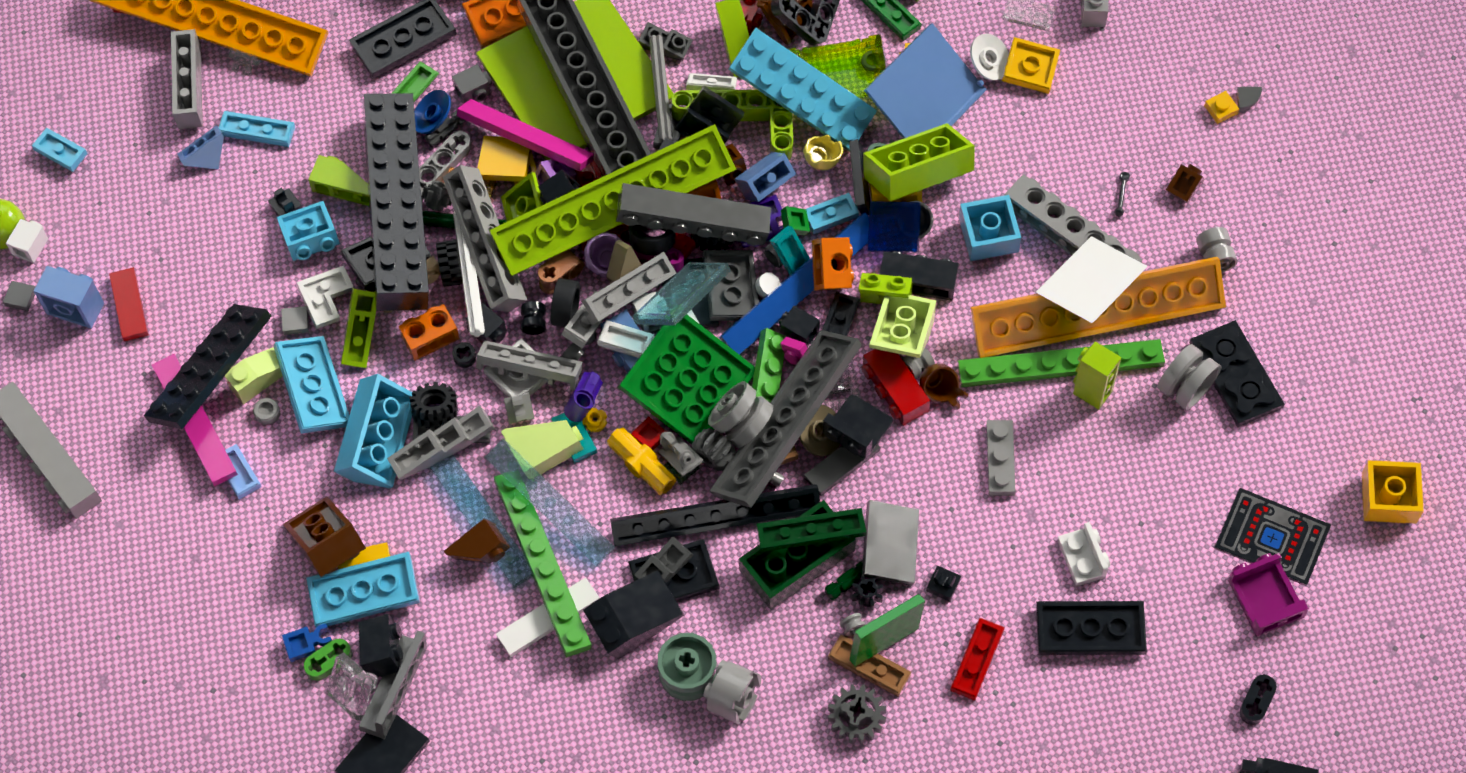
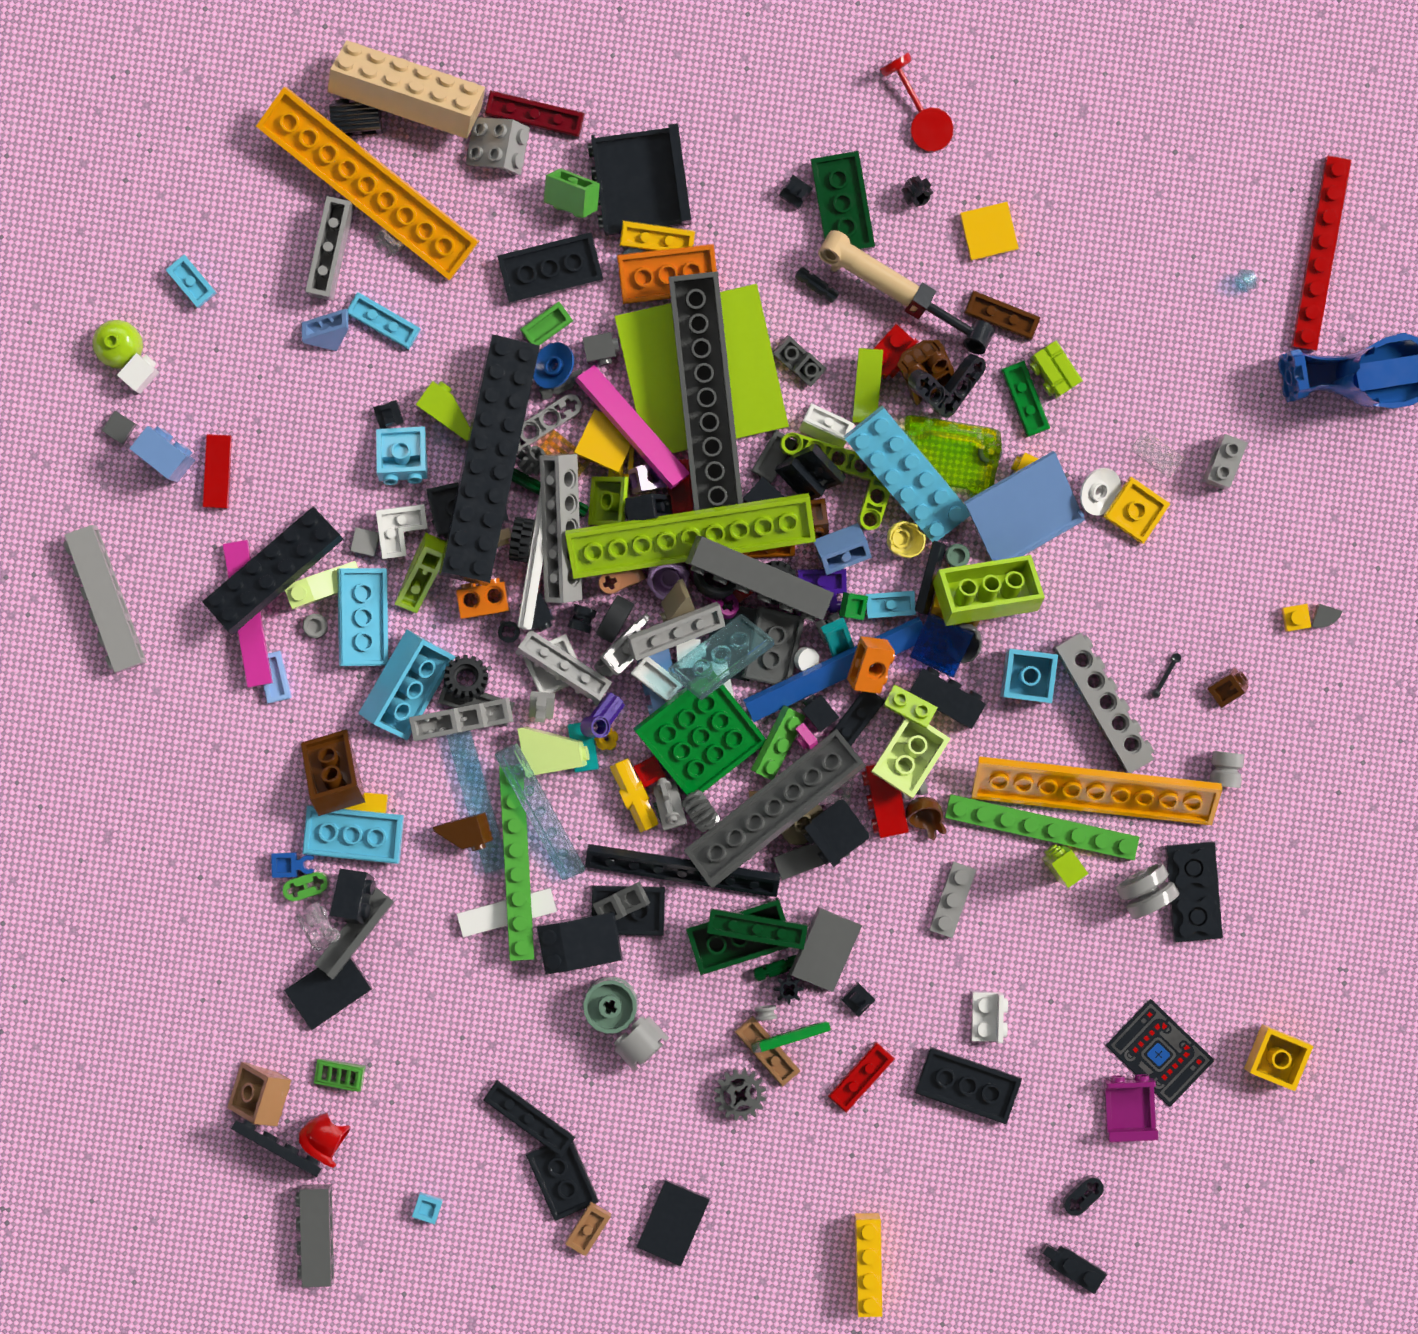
camera: 20 degrees right, 25 degrees up
(660, 88) = (776, 418): light grey axle -> none
(740, 414) = (734, 791): light grey wheel -> none
(1091, 279) = (1098, 770): white sticker -> none

